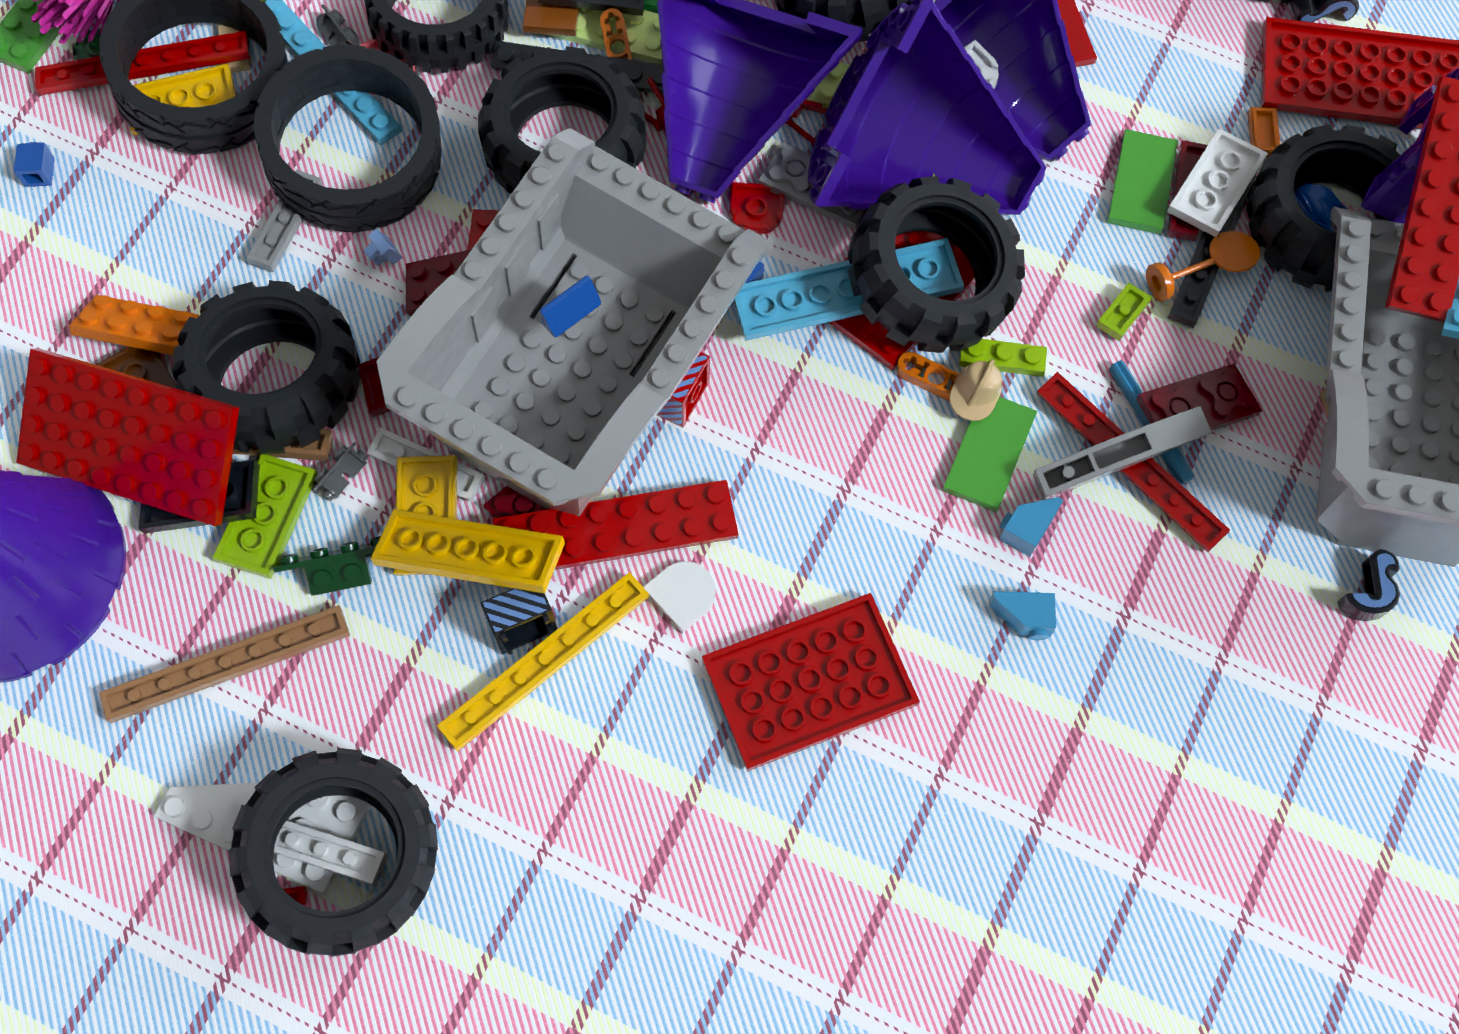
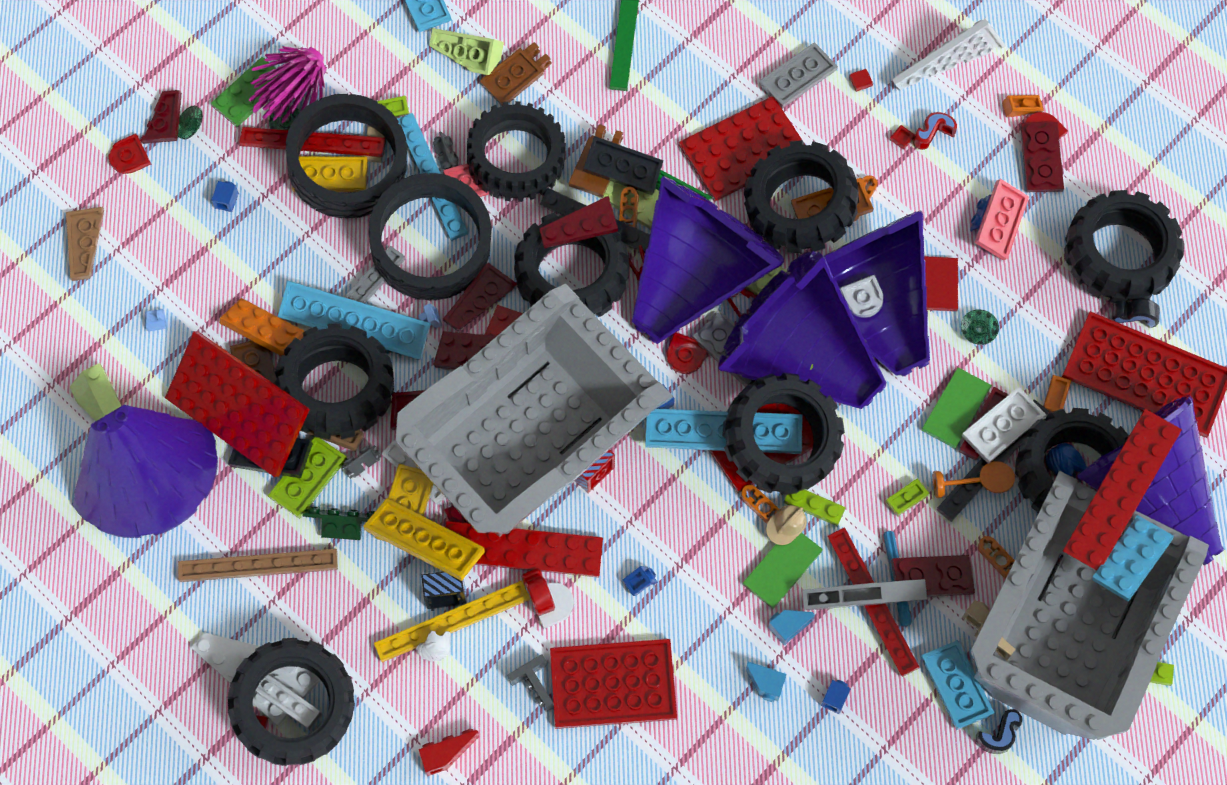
camera: 20 degrees right, 0 degrees up
(343, 279) = (319, 308): none -> medium azure plate
(444, 204) = (479, 296): none -> dark red wing
(532, 705) = (435, 647): none -> white hair
(563, 61) = (582, 224): none -> dark red wing
(570, 307) = (530, 403): blue slope -> none
(592, 861) = (442, 755): none -> red slope
(661, 579) = (538, 592): none -> red animal
(692, 712) = (533, 683): none -> dark grey bracket
(798, 523) = (640, 580): none -> blue bracket
(1131, 605) = (836, 696): none -> blue brick
(1134, 71) = (983, 320): none -> clear green dish
(1288, 540) = (956, 685): none -> medium azure plate
(1293, 376) = (992, 560): none -> orange beam
(1294, 437) = (976, 615): none -> tan slope

